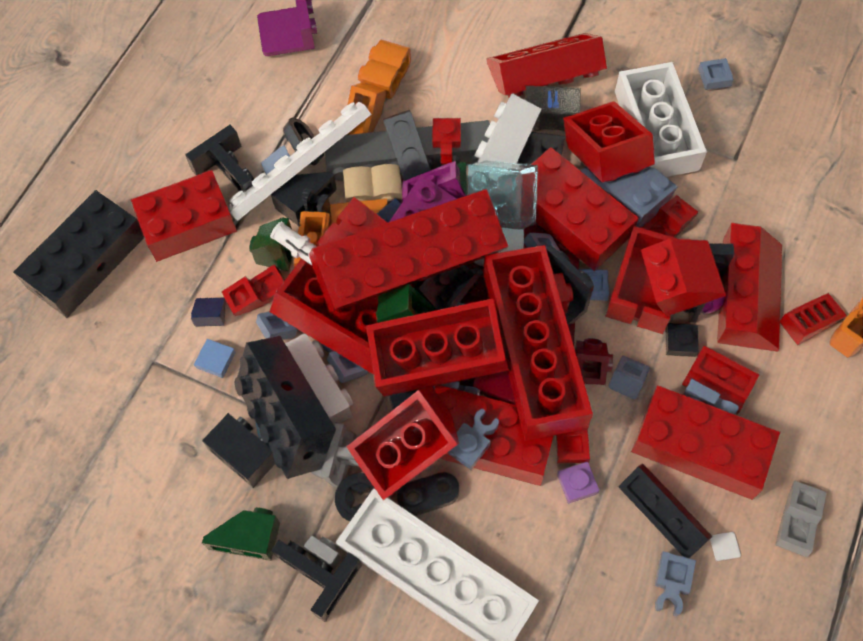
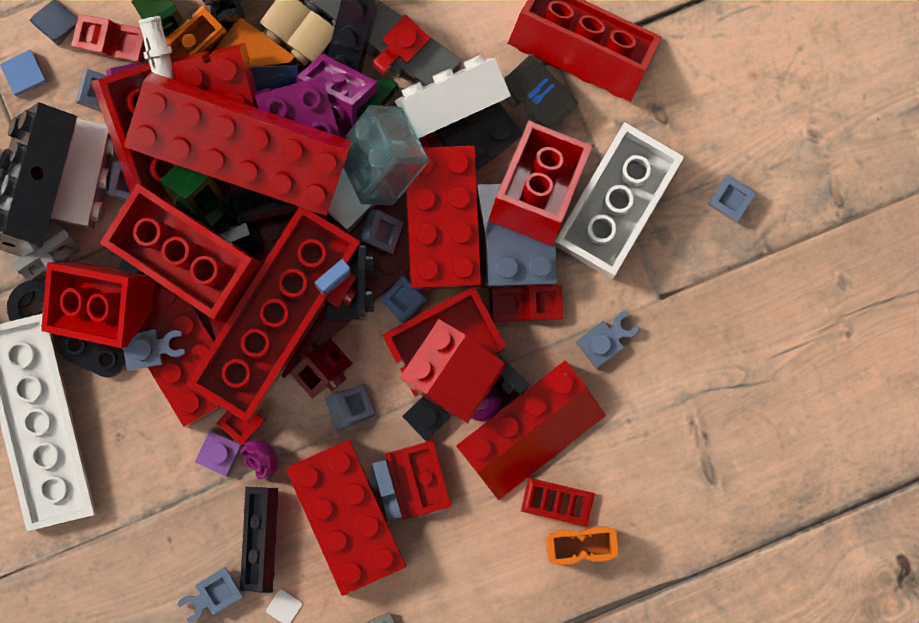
camera: 40 degrees right, 20 degrees up
(554, 272) = (333, 277): none -> medium blue tile
(610, 457) = (260, 457): none -> magenta plate
(732, 204) = (603, 342): none -> sand blue plate

